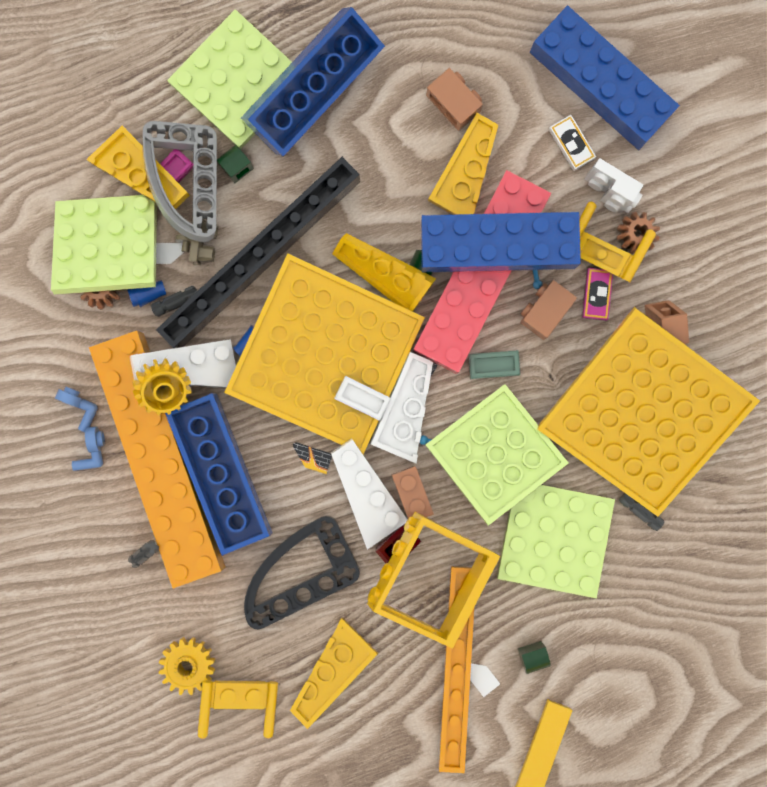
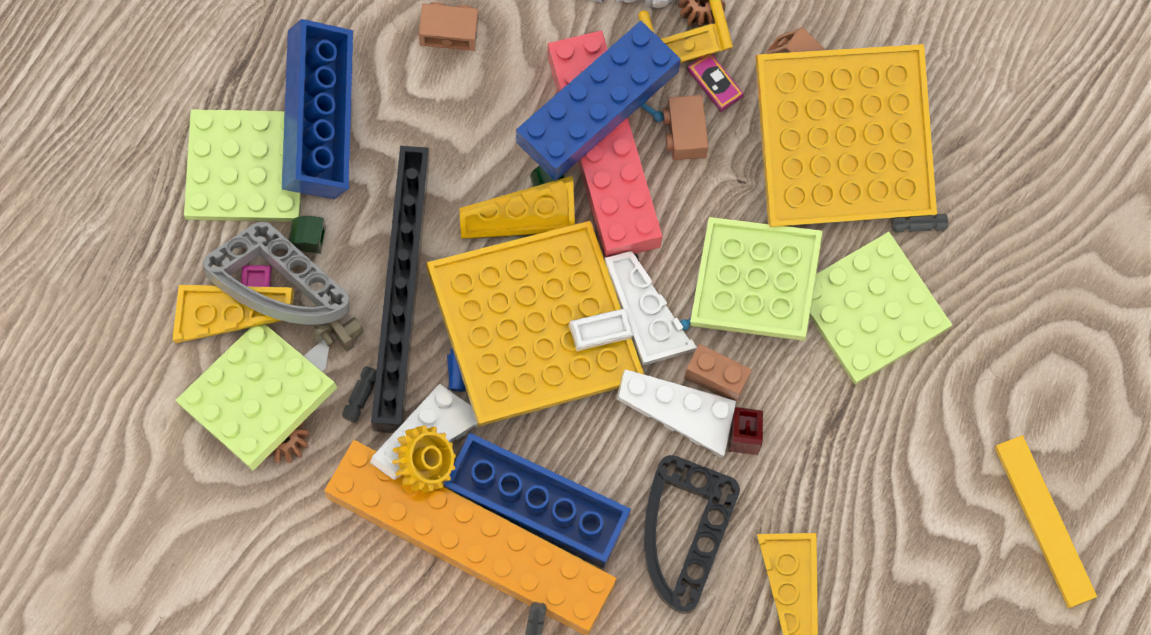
camera: 45 degrees left, 15 degrees down
(71, 397) = (344, 555): medium blue plate -> none
(94, 440) = (399, 572): medium blue plate -> none
(143, 296) = (329, 410): blue cone -> none
(313, 458) = (604, 423): sticker -> none
(456, 687) = (896, 488): light orange plate -> none
(463, 176) = (511, 73): yellow wing -> none
(466, 598) = (841, 404): yellow window -> none
(483, 679) = (921, 480): white sticker -> none
(494, 364) = (685, 211): sand green tile -> none
(534, 657) = (950, 419): dark green brick -> none

